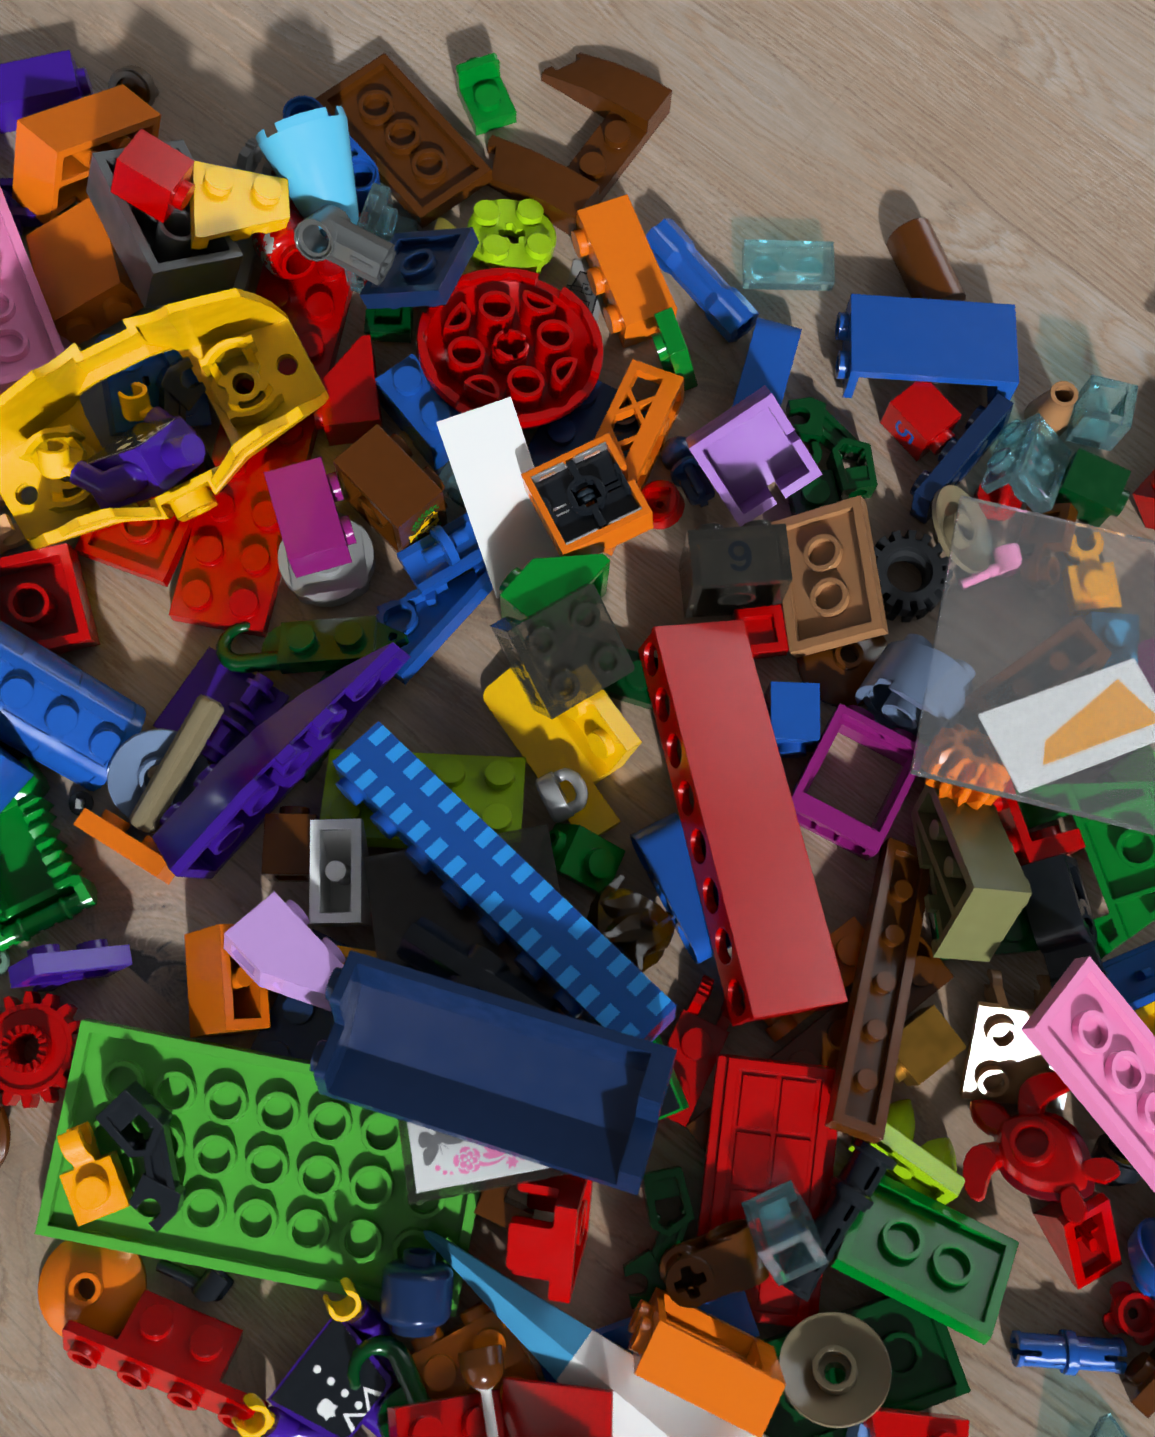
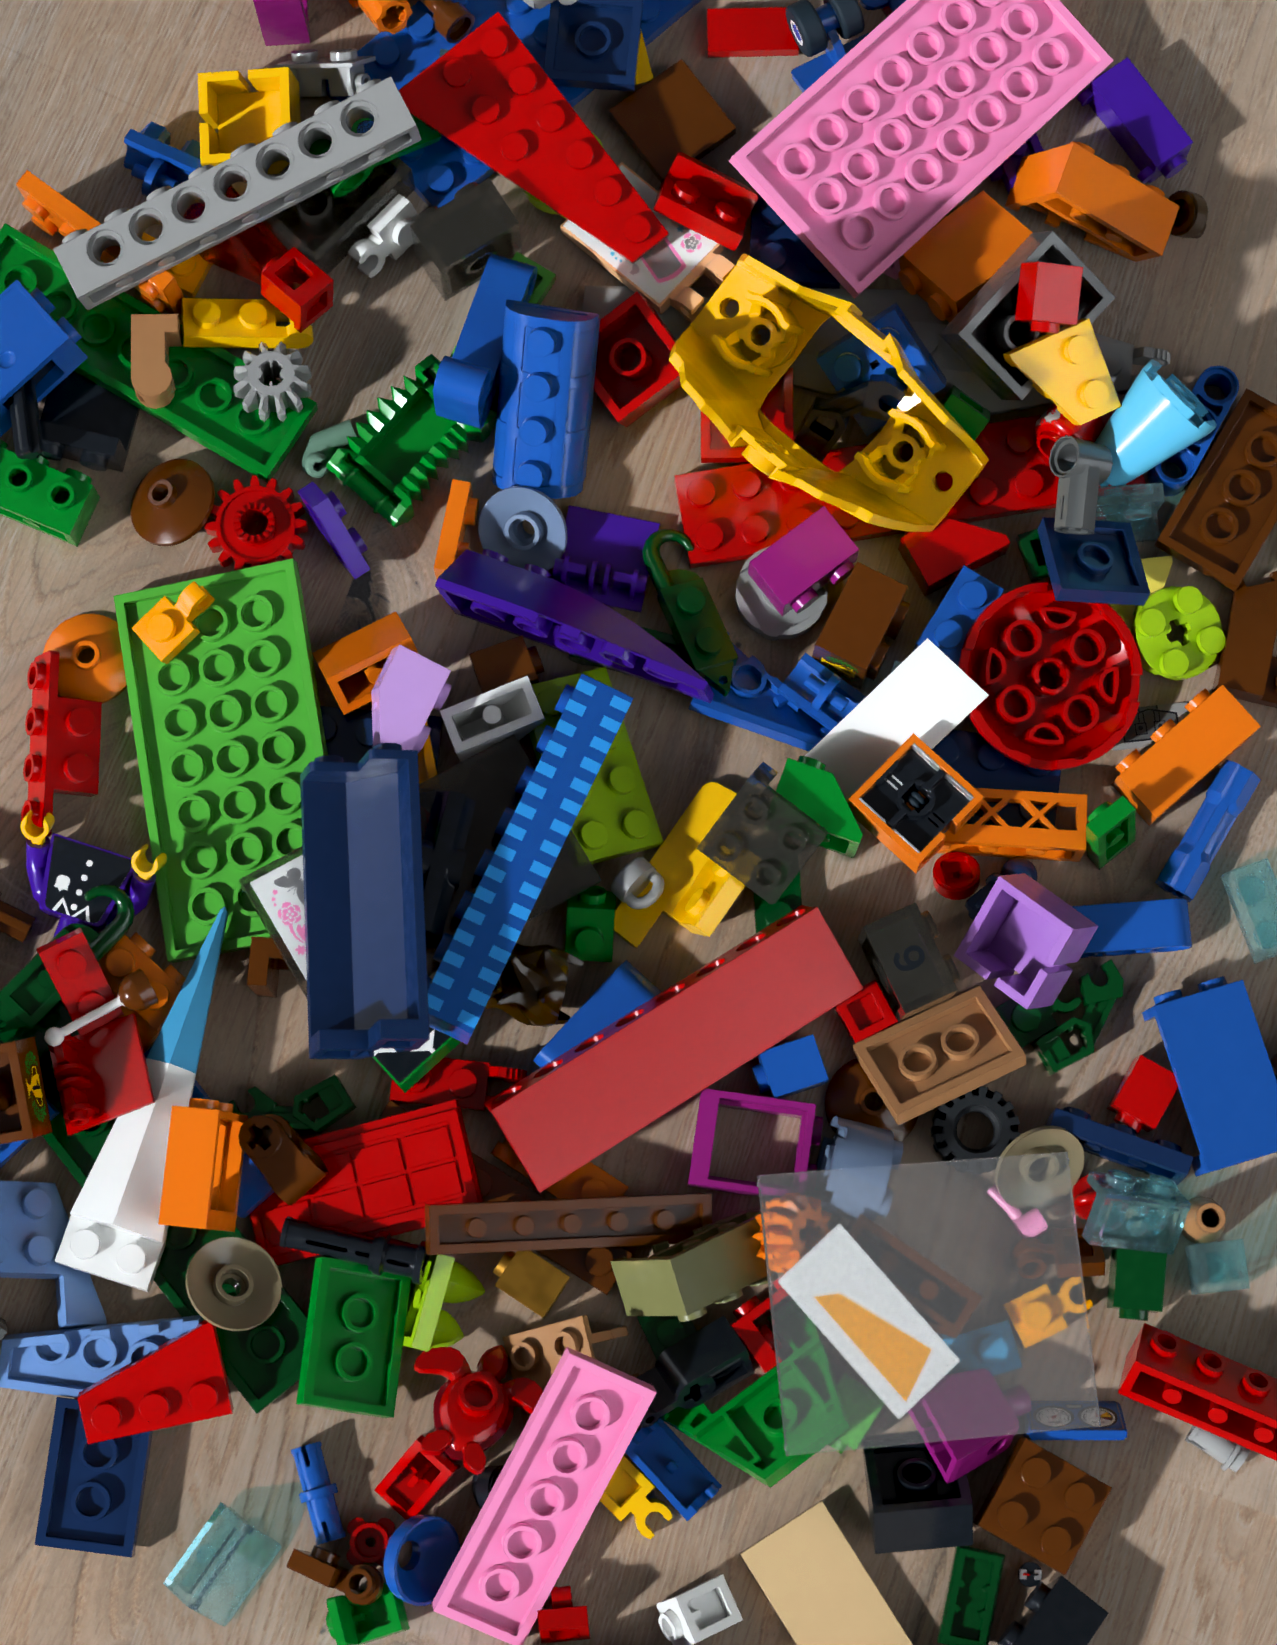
camera: 75 degrees right, 5 degrees up
(79, 801) = (478, 474): black piece -> none
(137, 463) = (783, 398): dark purple torso -> none
(161, 1174) = (190, 676): black piece -> none
(176, 763) = (538, 542): dark tan axle -> none
(207, 1288) = (122, 753): black hand -> none
(416, 1293) = (174, 918): dark blue head -> none
(552, 1248) = (251, 1019): red panel -> none
(784, 1233) = (326, 1202): clear light blue brick -> none

